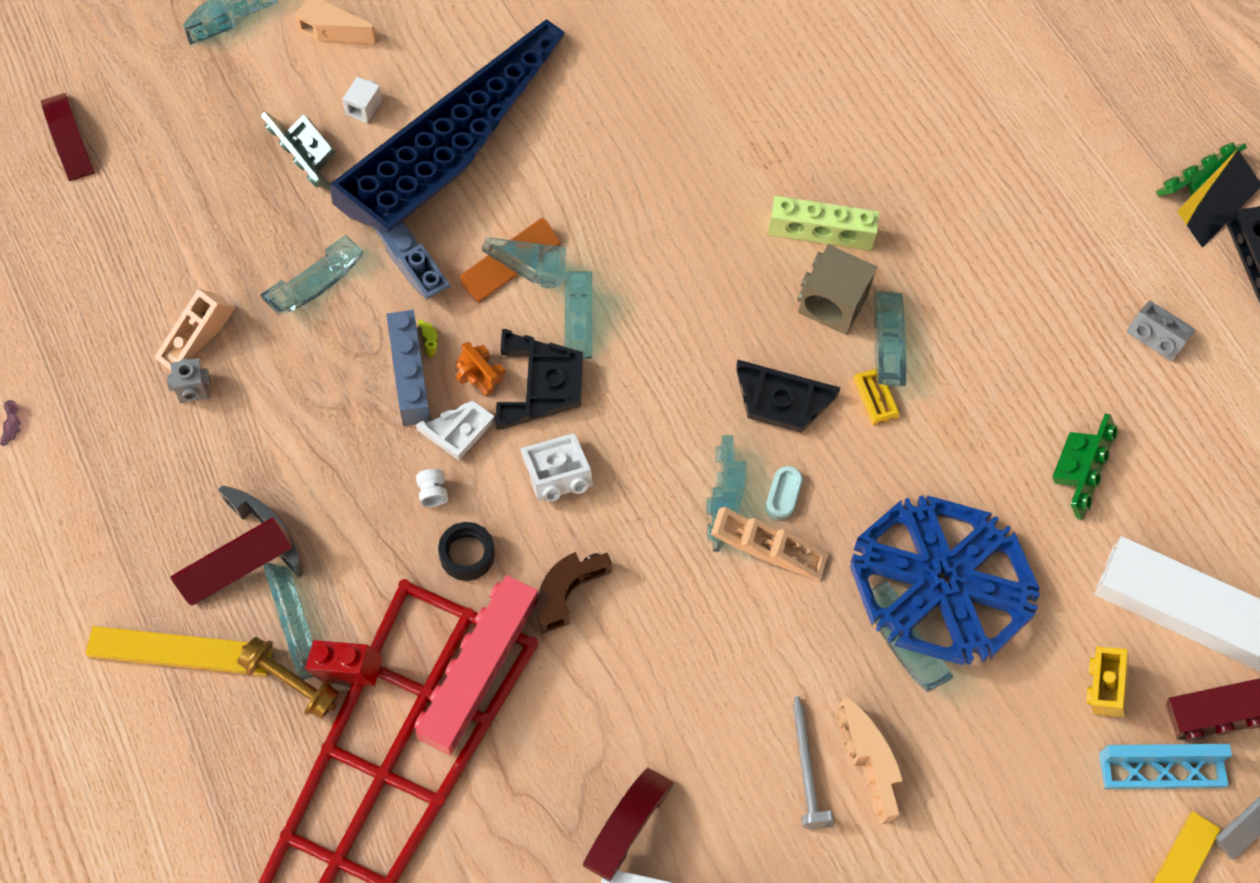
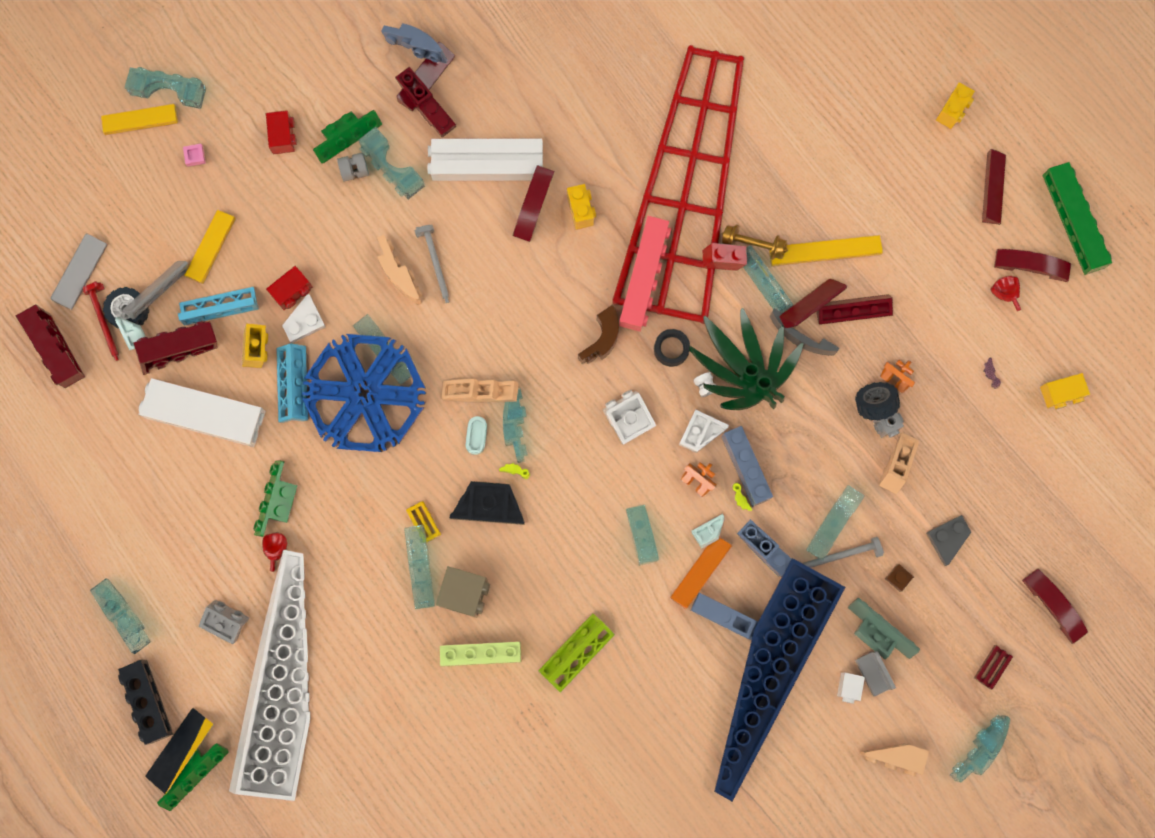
camera: 170 degrees right, 15 degrees up
(142, 445) = (904, 382): none -> orange hips
(157, 553) = (855, 309): none -> dark red slope
(166, 234) = (949, 538): none -> dark grey wing
(174, 86) = (1000, 671): none -> dark red tile
(180, 416) = (877, 401): none -> black wheel
(252, 203) = (899, 577): none -> reddish brown plate
(269, 243) = (874, 545): none -> light grey piece
(327, 110) = (875, 673): none -> light grey panel
(358, 478) = (754, 380): none -> dark green plant
(486, 303) = (709, 531): none -> light aqua tile
(495, 198) = (724, 616): none -> sand blue slope
(532, 261) = (681, 567): clear light blue slope -> none
(552, 380) = (648, 483): black wing -> none
(552, 808) = (580, 207): none -> yellow brick
(699, 205) = (573, 650): none -> lime fence
(739, 437) = (515, 469): none -> neon yellow piece
(1027, 715) = (303, 321): none -> white wing
(1045, 628) = (296, 371): none -> medium azure fence
(1048, 767) = (289, 288): none -> red brick
(1089, 404) = (273, 547): none -> red piece
(1090, 235) = (278, 697): none -> white wedge

